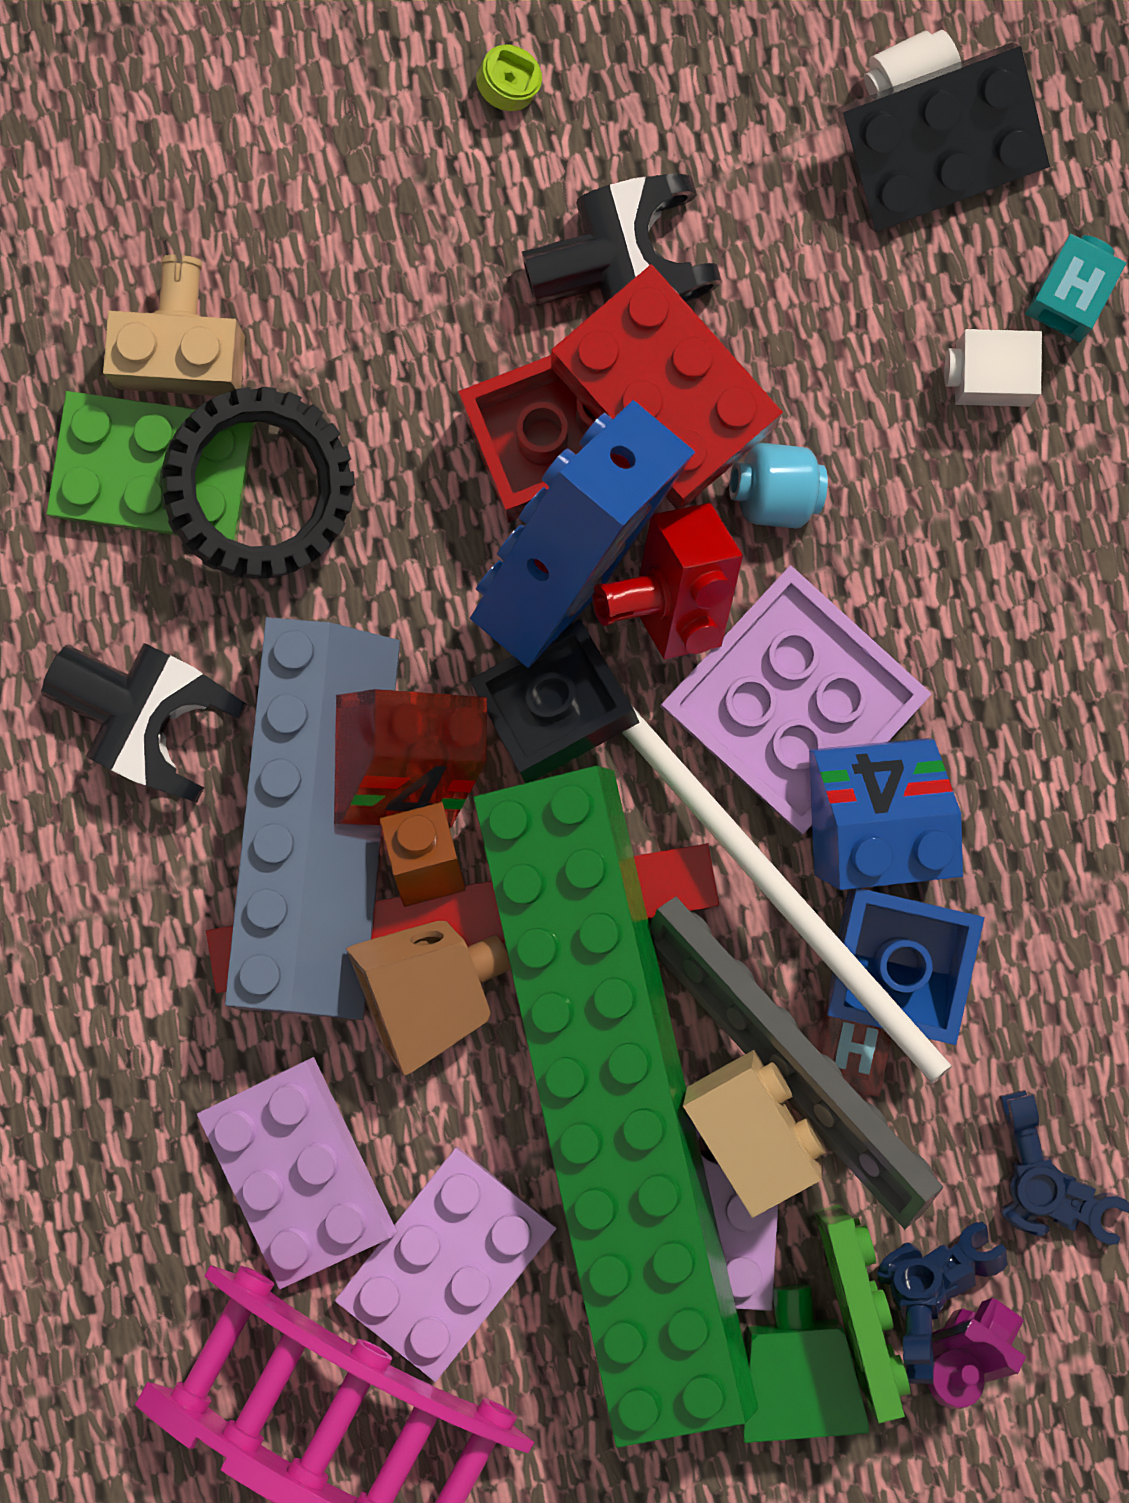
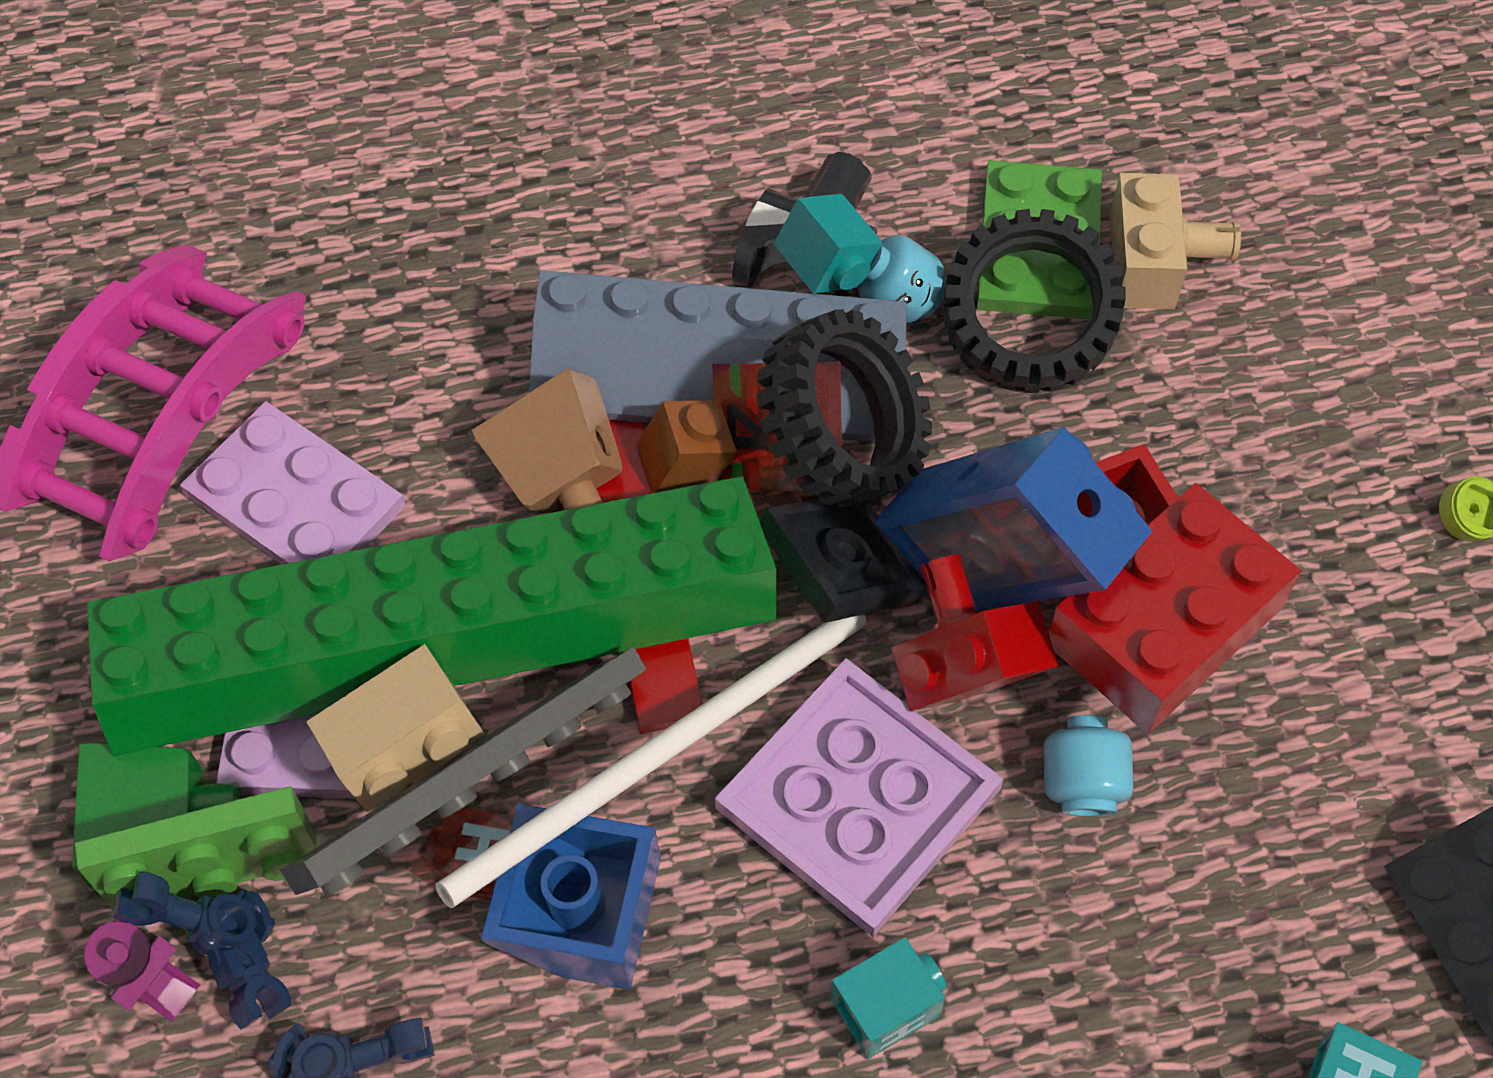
camera: 90 degrees right, 25 degrees down
(202, 694) = (827, 243): none -> teal brick
(218, 621) = (905, 274): none -> medium azure head
(297, 1173) = (387, 366): lavender plate -> none
(404, 735) = (800, 424): none -> black tyre
(617, 244) = (1333, 610): black connector -> none
(883, 815) = (737, 870): blue slope -> none
(992, 683) = (889, 996): none -> teal brick
(995, 367) = (1251, 993): white brick -> none

